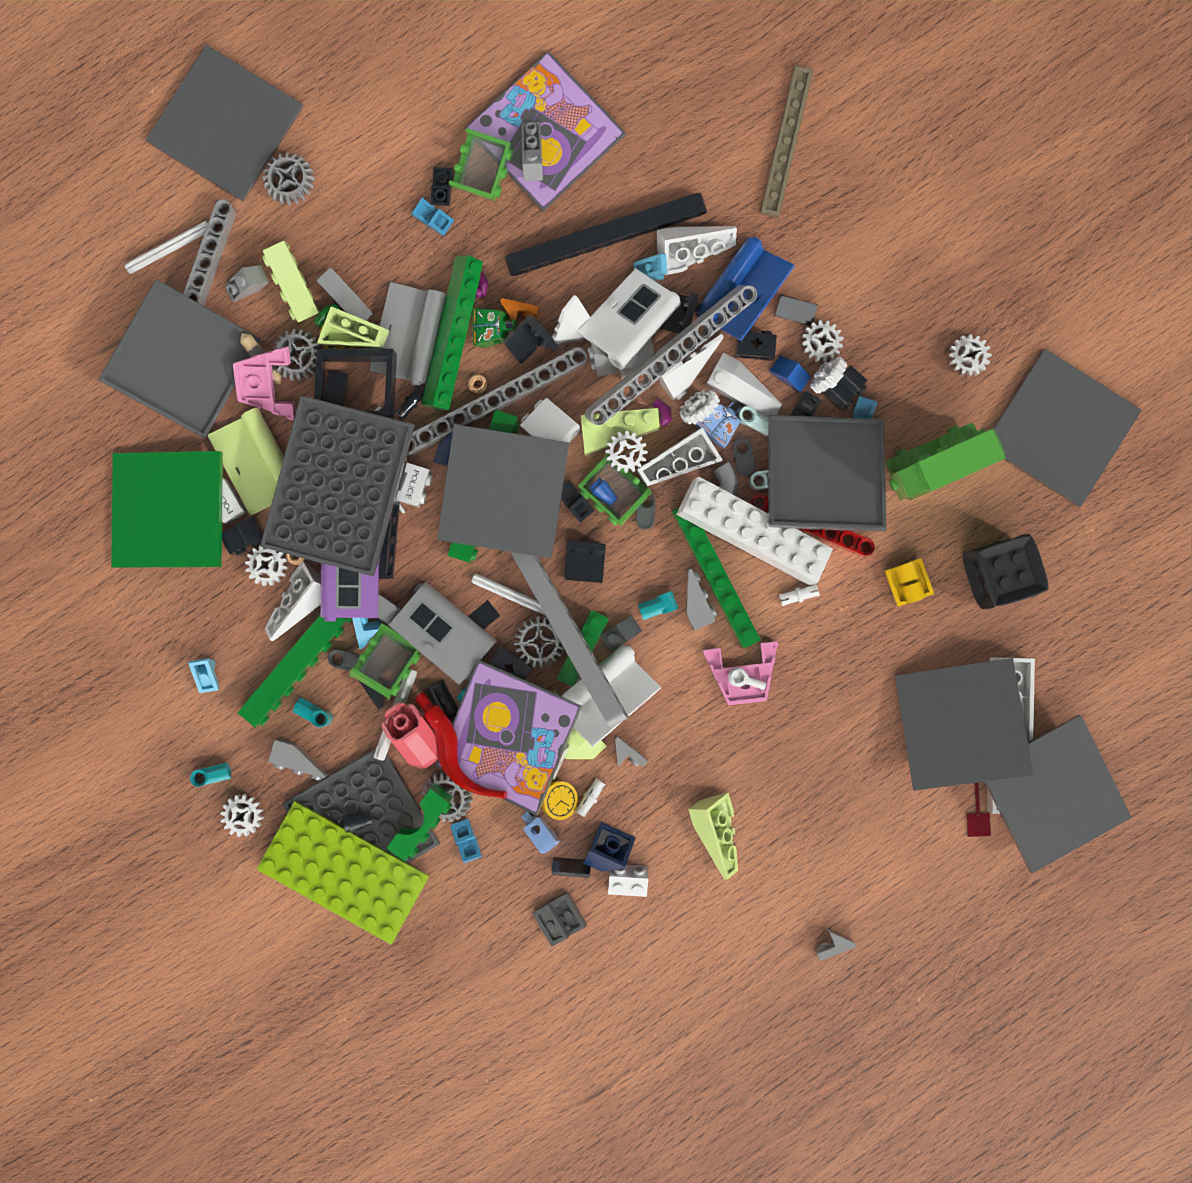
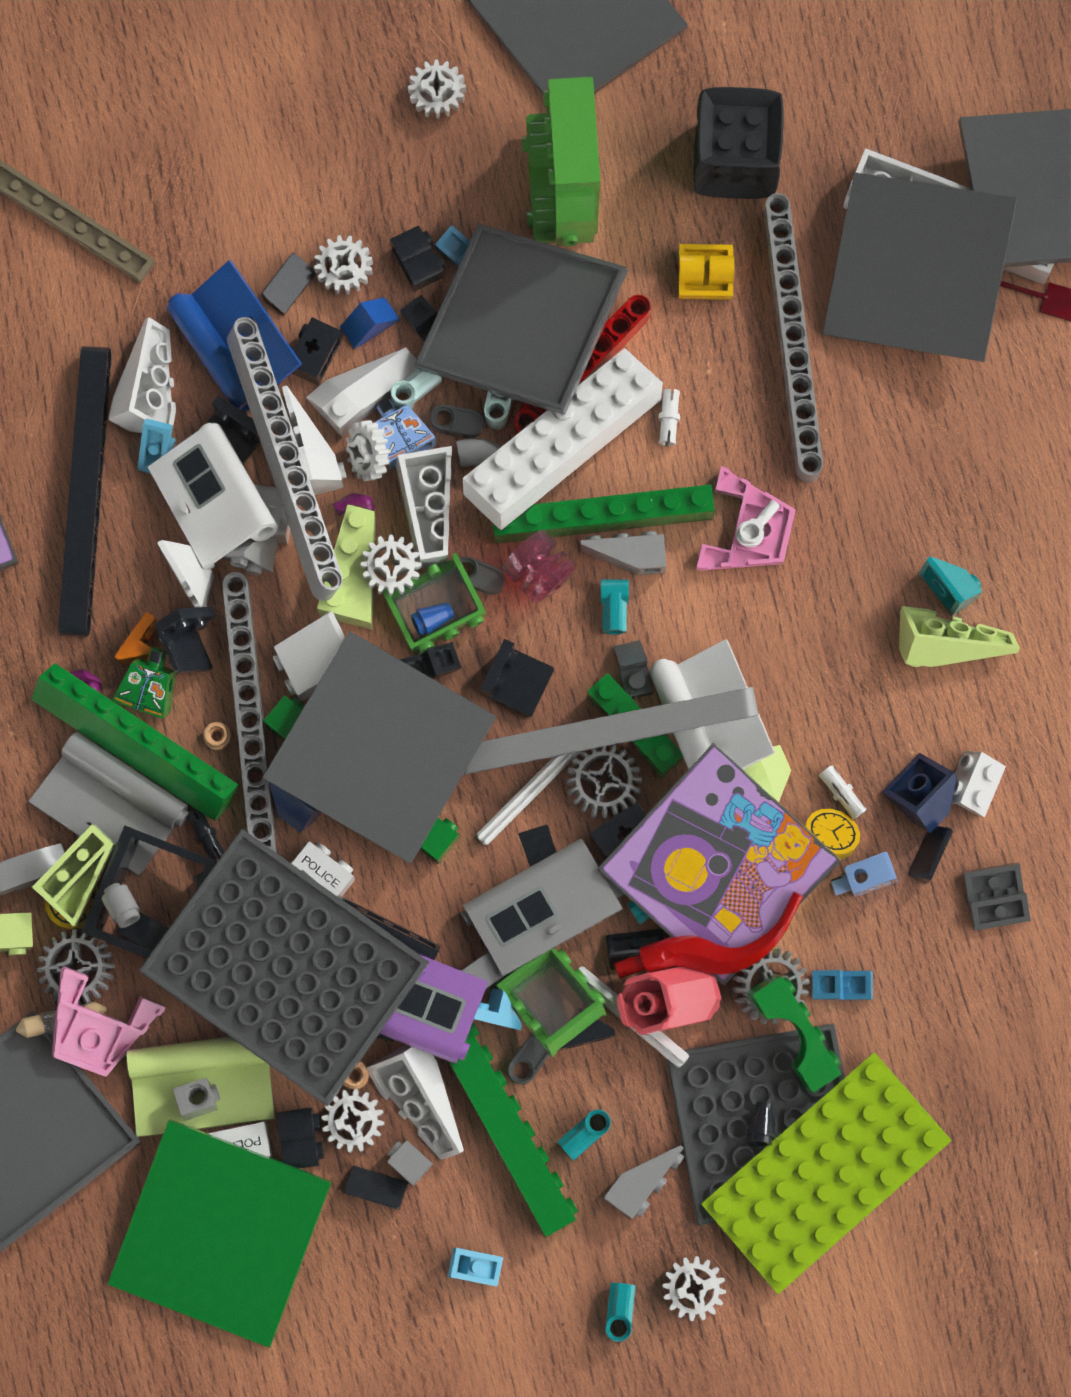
camera: 70 degrees left, 10 degrees down
(231, 595) = (376, 1187): none -> black slope
(238, 455) = (185, 1093): none -> light grey brick
(254, 610) = (408, 1161): none -> light grey brick
(321, 318) = (35, 905): green arm -> none
(339, 367) = (121, 905): none -> light grey brick
(624, 750) = (794, 721): light grey slope -> none
(663, 547) = (534, 561): none -> clear pink wheel
(753, 821) = (950, 584): none -> teal slope
(828, 375) = (392, 270): white gear -> none
(894, 655) = (793, 349): none -> light grey beam

